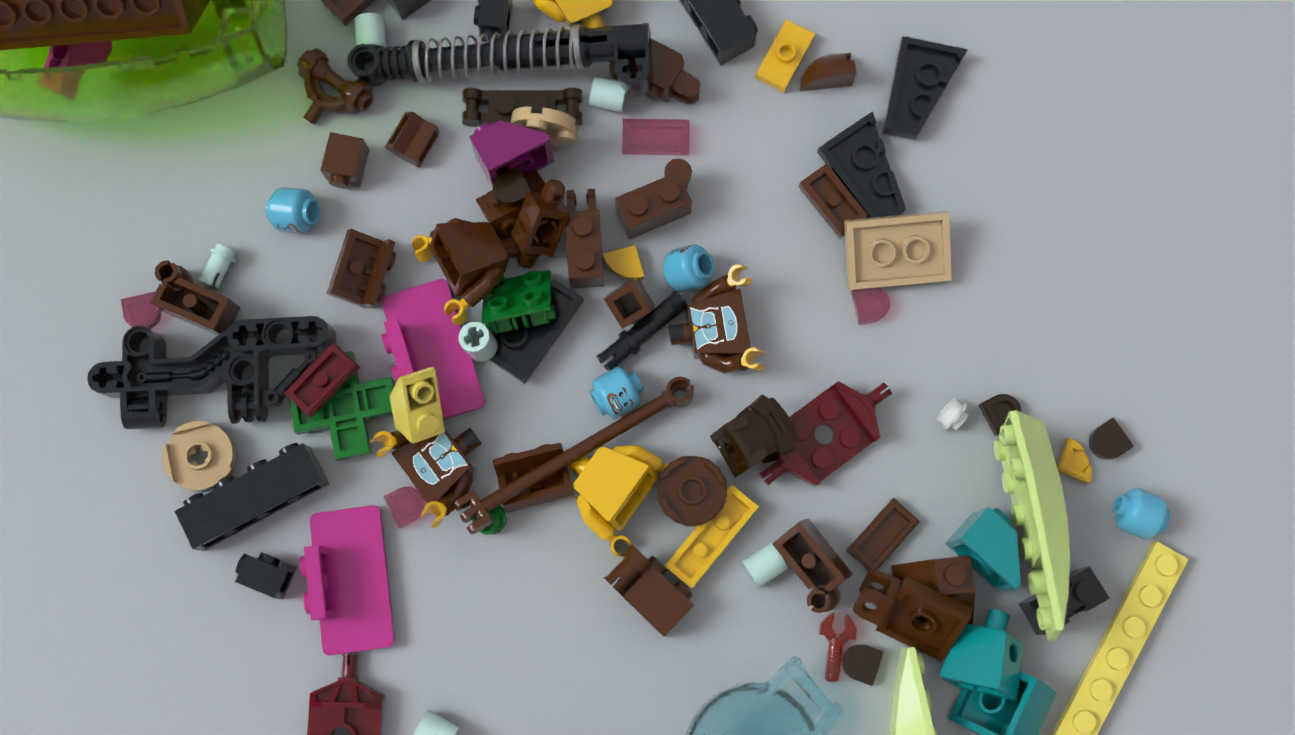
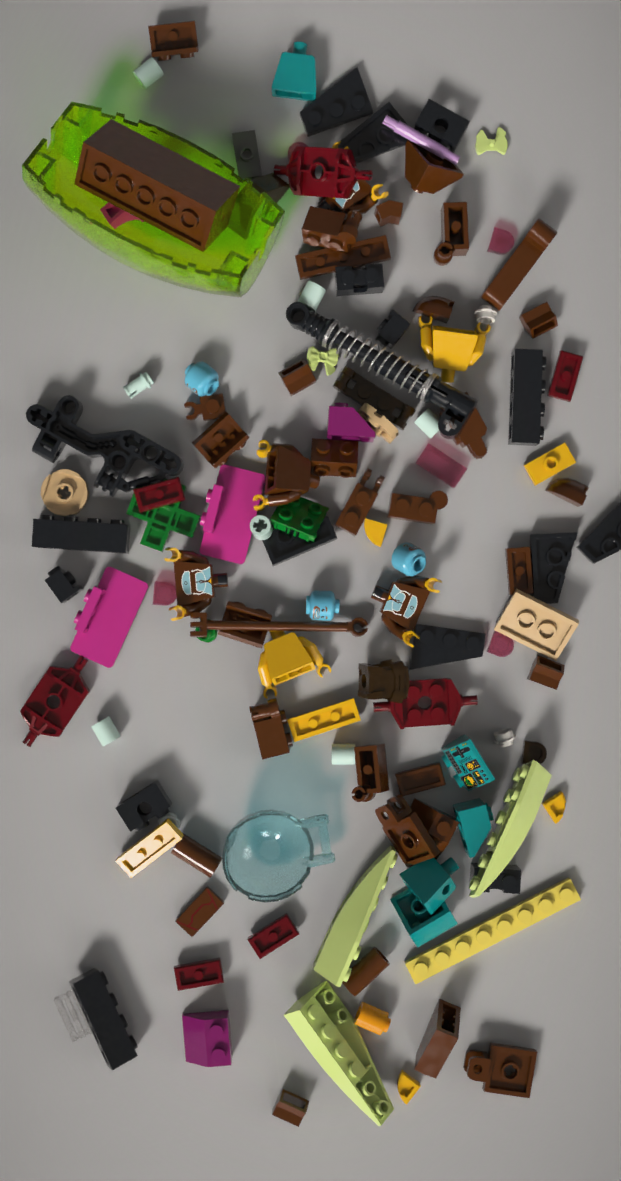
camera: 35 degrees right, 10 degrees up
(140, 312) = (79, 384): clear pink tile -> none
(191, 302) = (111, 400): reddish brown hinge -> none
(315, 68) = (266, 299): reddish brown piece -> none
(325, 240) = (211, 407): none -> reddish brown plate
(344, 160) = (249, 367): reddish brown brick -> none
(417, 405) = (203, 547): light yellow slope -> none
(437, 93) = (328, 357): none -> yellowish green piece
(510, 187) = (336, 448): dark brown tile -> none
(540, 223) = (339, 480): reddish brown piece -> none
(629, 302) = (362, 558): reddish brown brick -> none
(642, 331) = (349, 579): black pin -> none
(691, 491) = (328, 688): reddish brown tile -> none
(802, 349) = (444, 646): none -> black wing
(836, 644) = (353, 823): clear red bar -> none
(862, 663) = (362, 840): dark brown tile -> none
(929, 474) = (467, 763): none -> slope
(949, 303) = (546, 672): none -> reddish brown piece
(1109, 440) = (583, 807): dark brown tile -> none
(1141, 513) = (571, 859): medium azure head -> none

